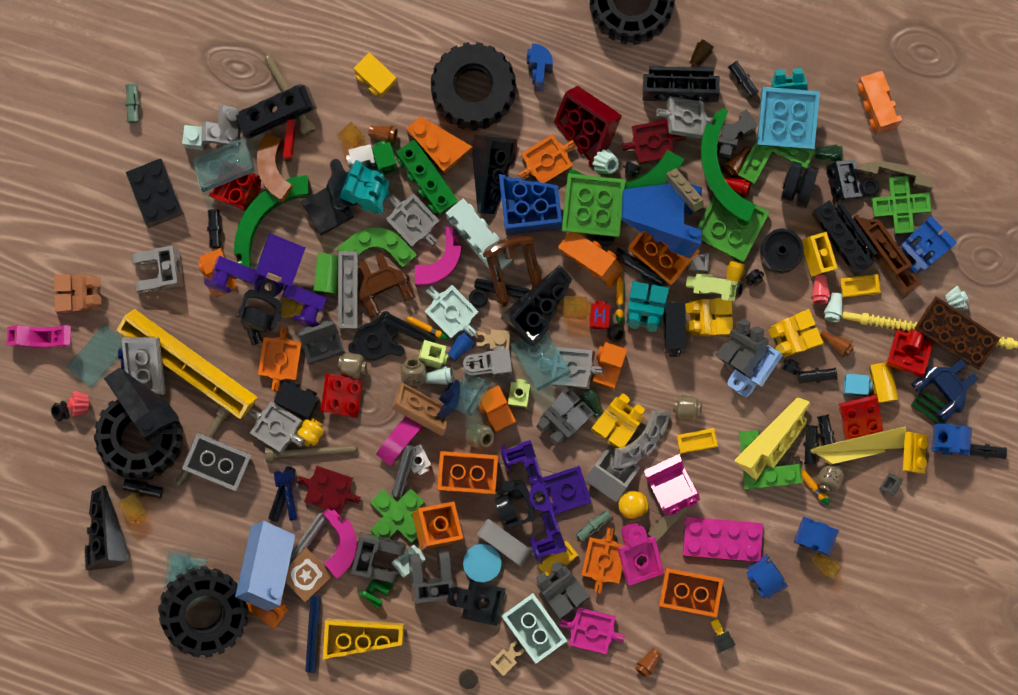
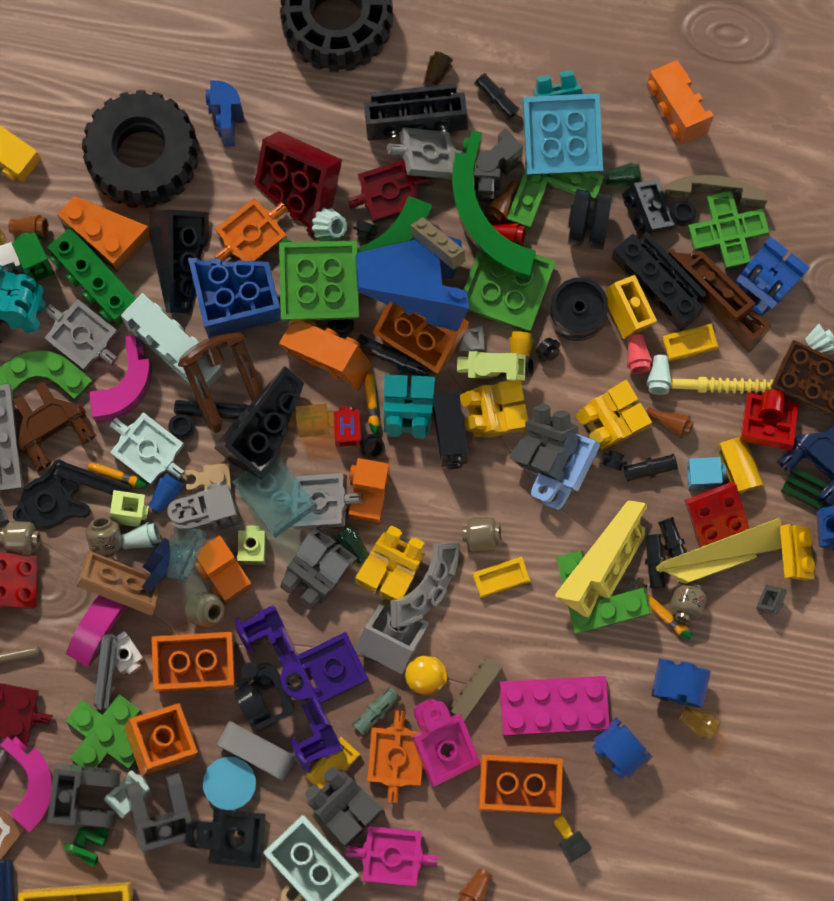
camera: 10 degrees left, 5 degrees down
(672, 486) = (475, 641): panel -> none

